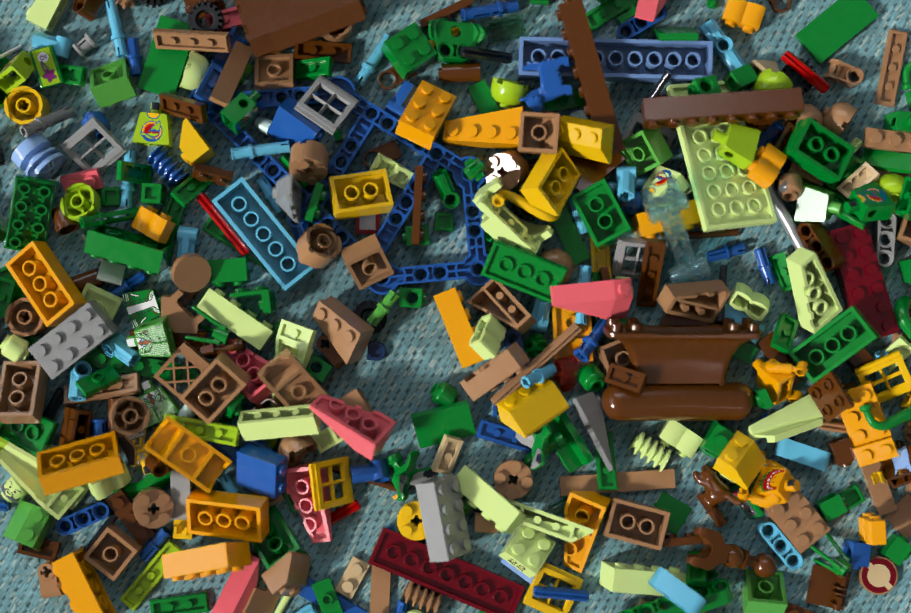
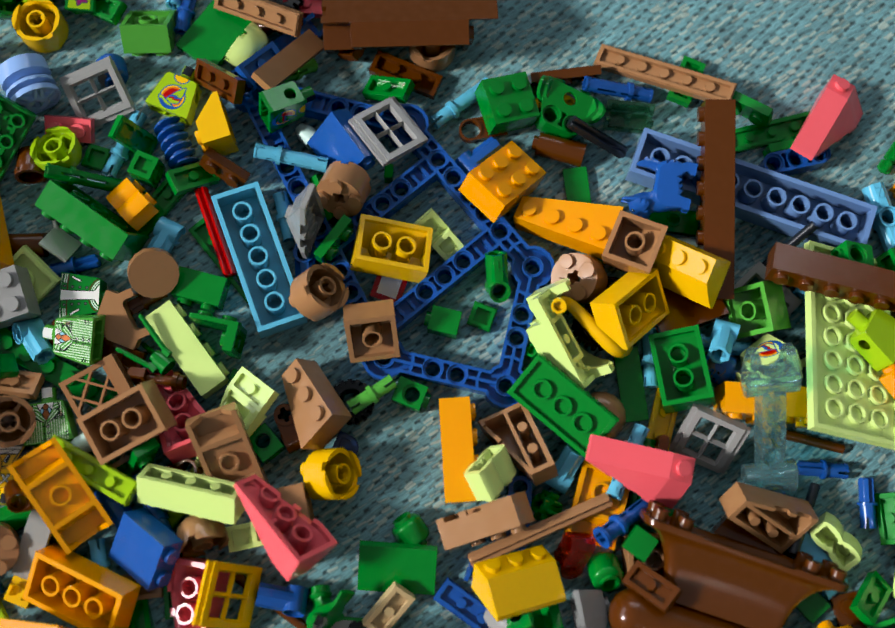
camera: 15 degrees right, 10 degrees down
(41, 124) = (58, 46): light grey pin -> none
(274, 71) = (340, 77): medium nougat plate -> none
(374, 374) = (331, 474): none -> yellow brick
(389, 149) = (445, 209): reddish brown piece -> none
(418, 213) = (454, 293): reddish brown plate -> none
(474, 169) = (540, 262): green gear -> none
(508, 92) = (610, 187): lime cylinder -> none
(538, 375) = (539, 545): medium azure pin -> none
(609, 350) = (639, 543): none -> green tile
(650, 272) = (721, 461): reddish brown plate -> none
(676, 33) = (834, 185): green tile -> none

